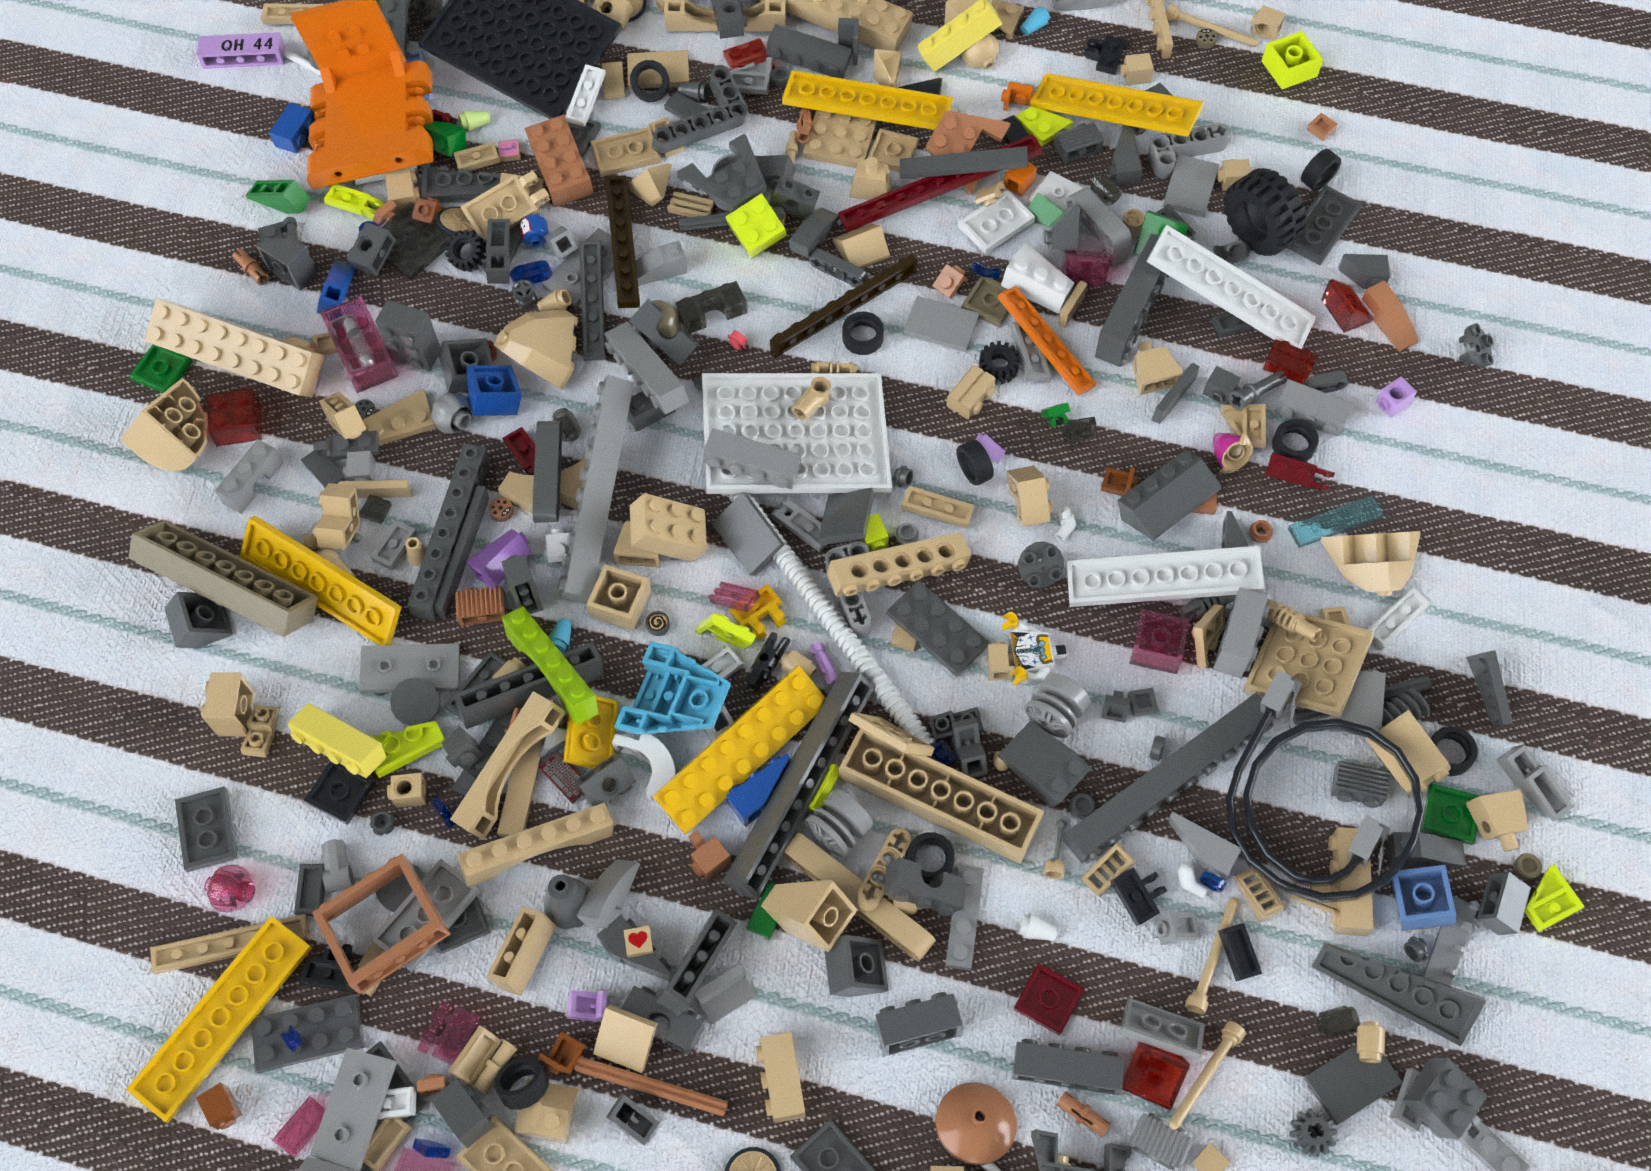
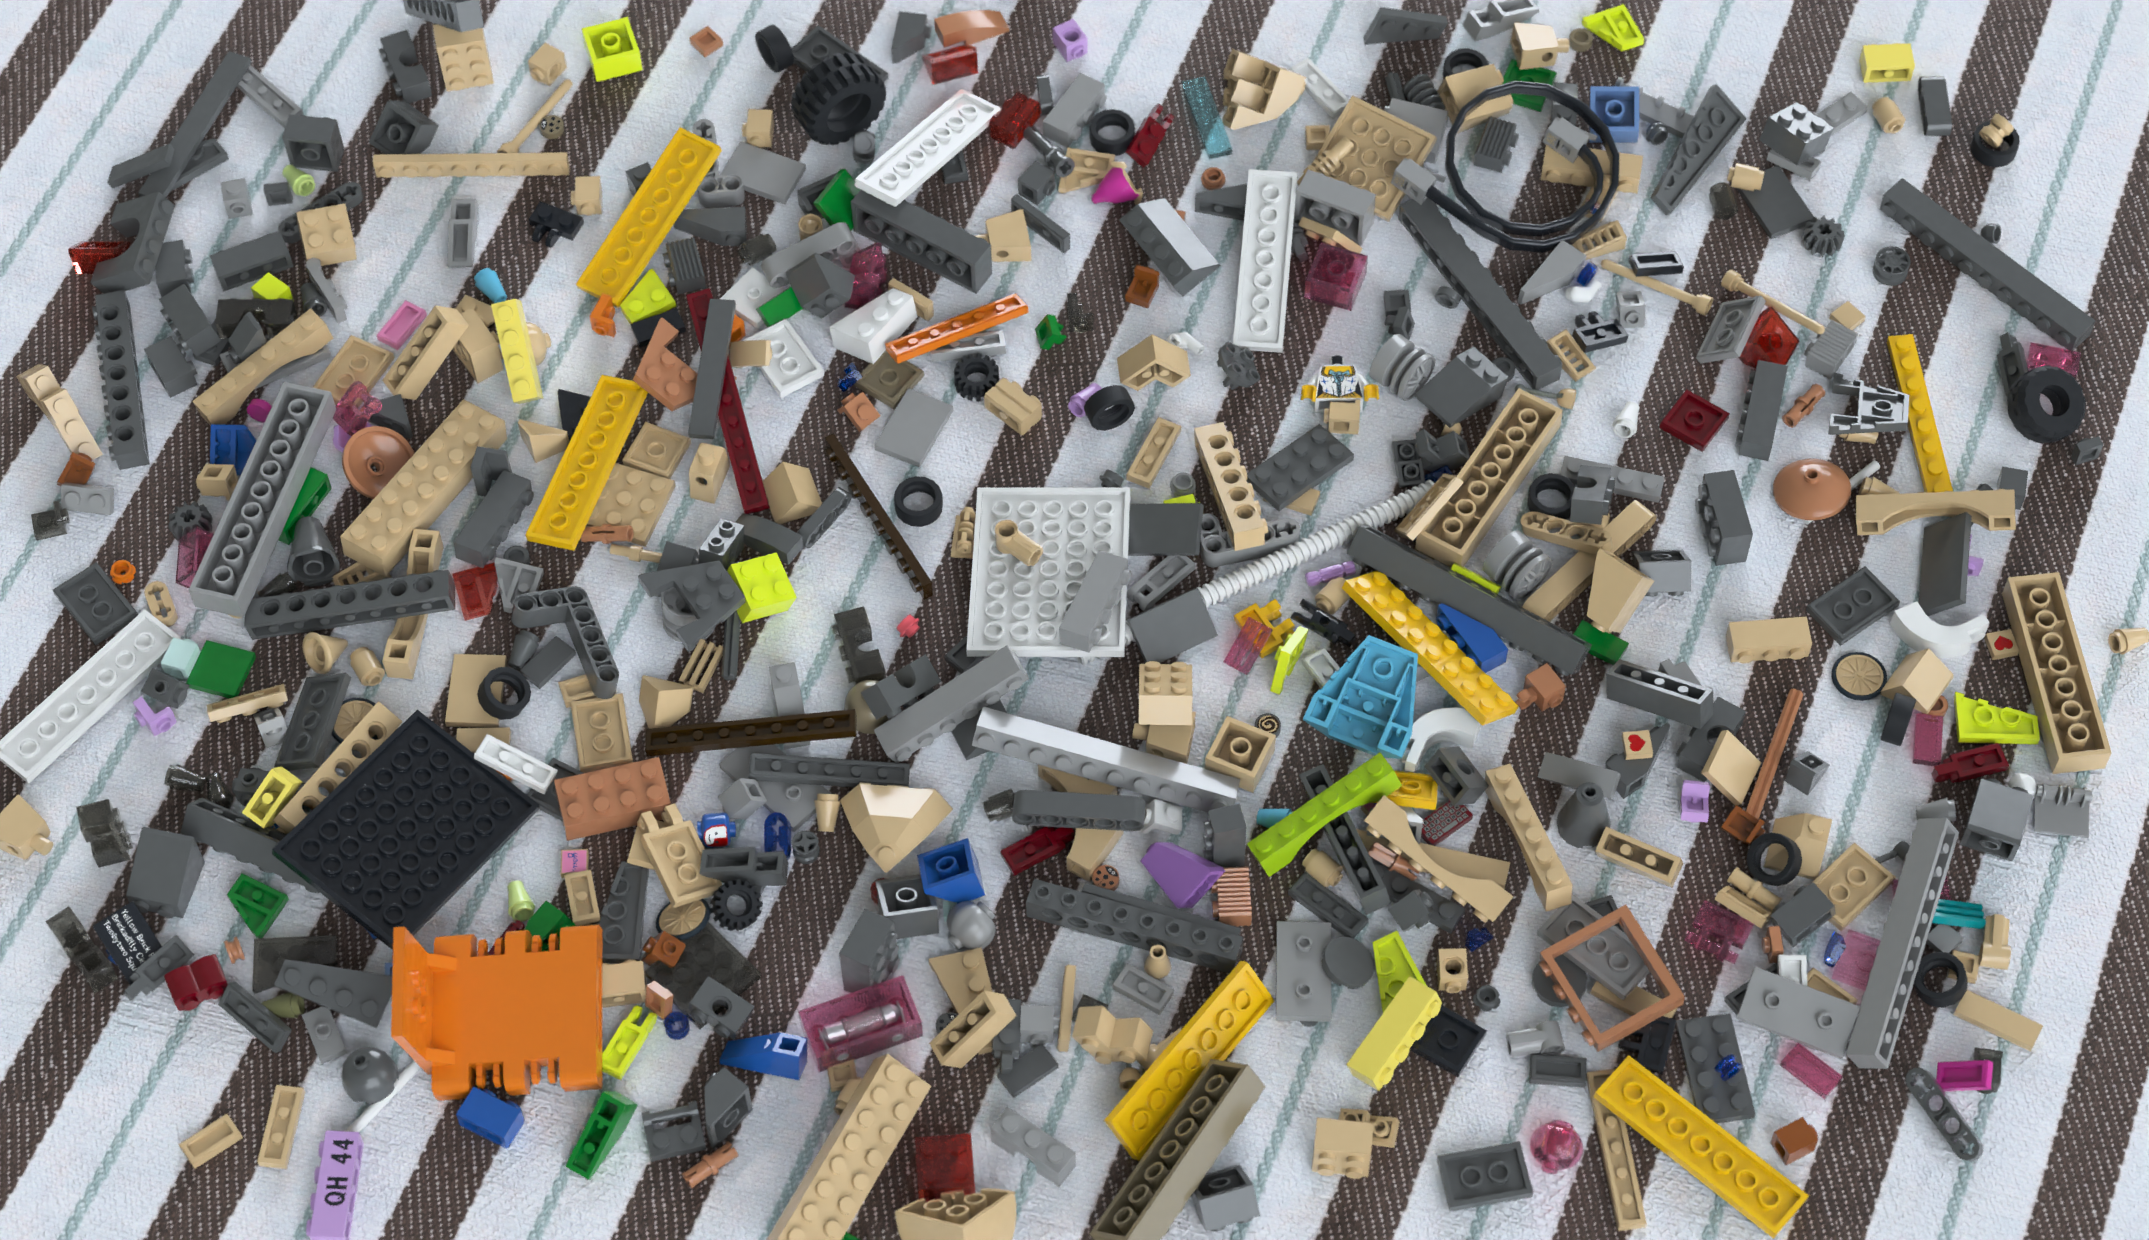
camera: 85 degrees left, 5 degrees down
(1503, 903) = (1620, 59): brick -> none

